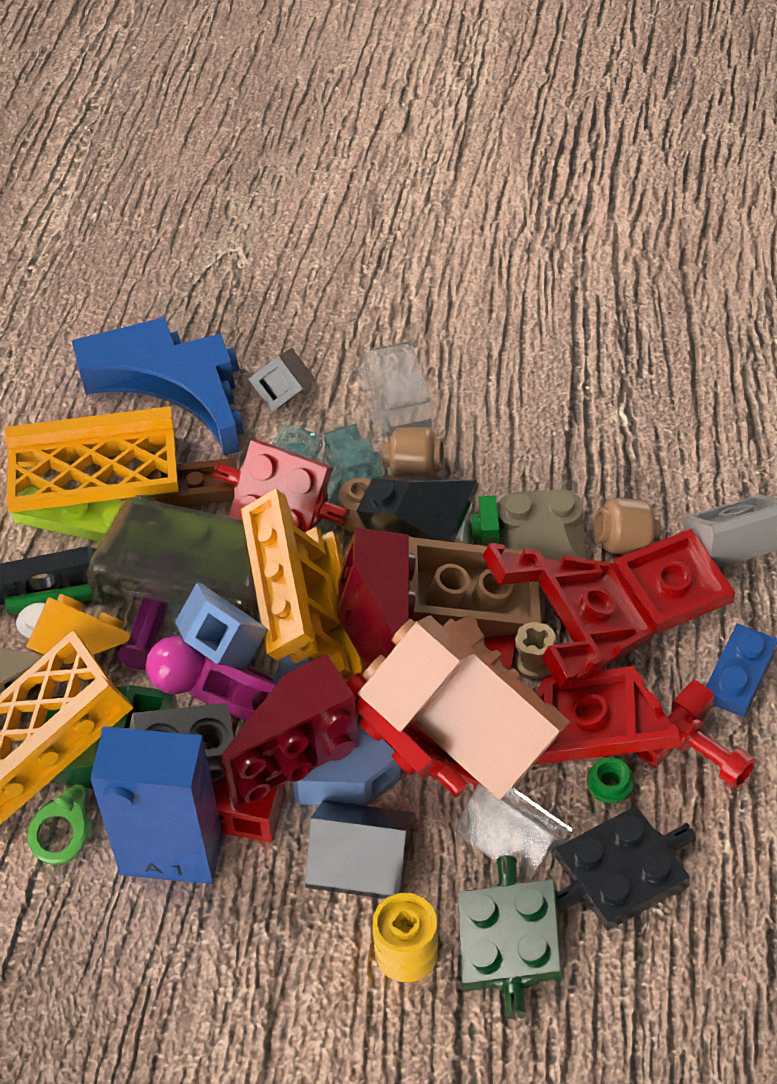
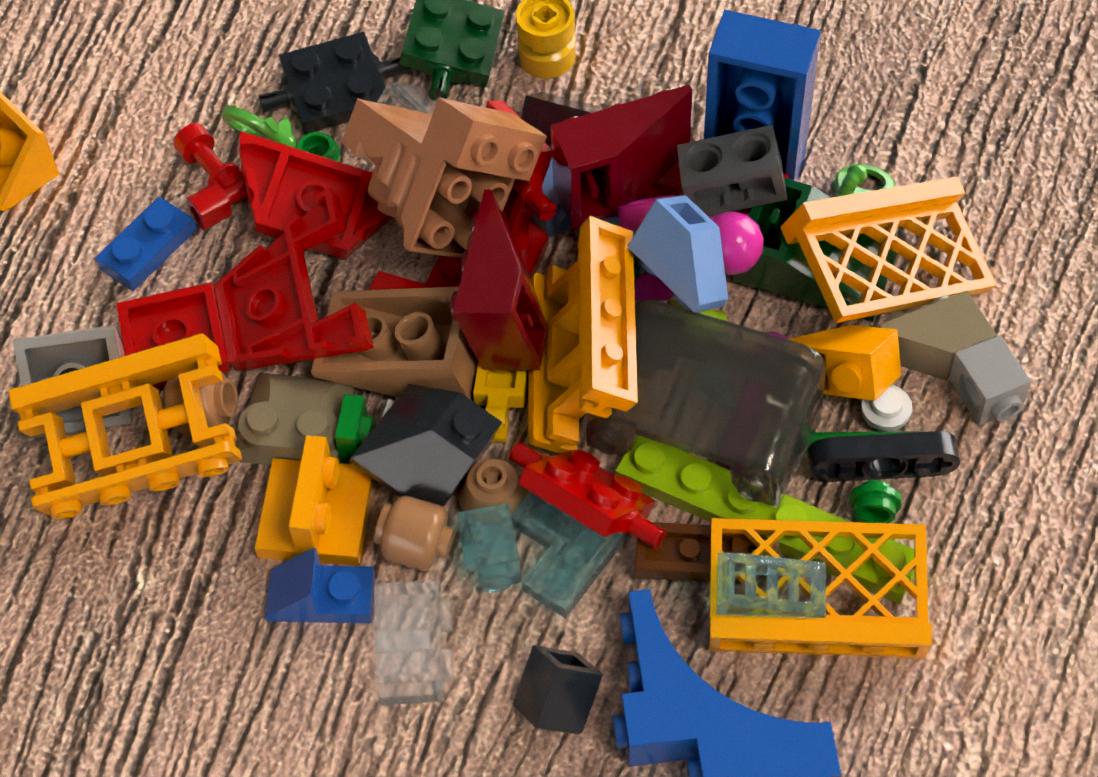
camera: 170 degrees left, 5 degrees up
(47, 537) = (875, 502): none -> green plate
(129, 440) = (750, 605): none -> clear light blue slope
(483, 419) = (316, 593): none -> blue slope
(500, 461) = (315, 506): none -> light orange bracket
(531, 644) = (346, 271): tan bush -> none
(660, 794) = (266, 128): none -> bright green piece
(705, 481) = (114, 388): none -> light orange fence

